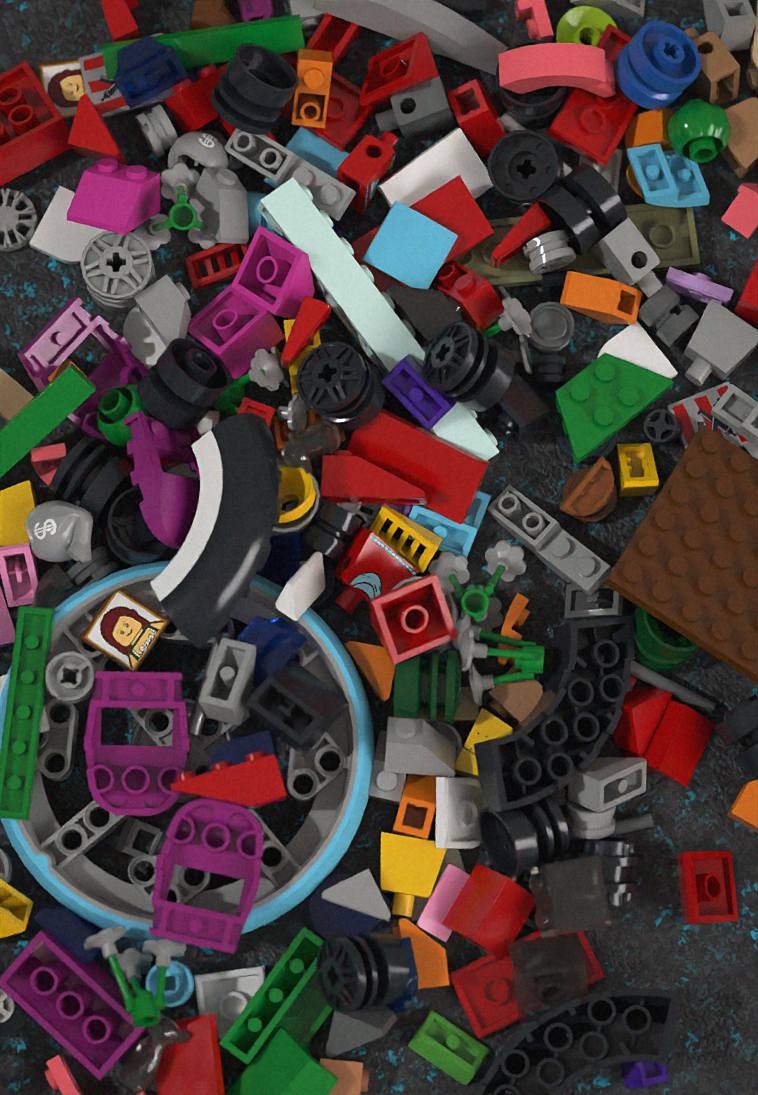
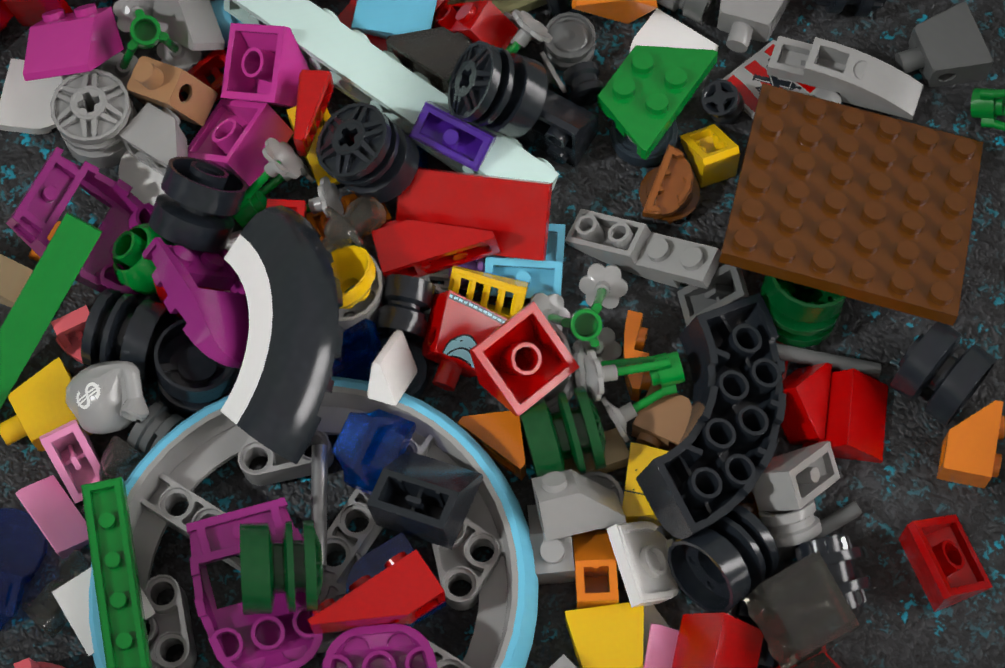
camera: 10 degrees left, 10 degrees down
(56, 673) = (161, 561): light grey wheel -> none
(125, 629) = (208, 477): sticker -> none
(160, 735) = (279, 567): none -> dark green wheel
(185, 264) = (160, 86): none -> medium nougat torso
(229, 682) = (341, 493): light grey slope -> none

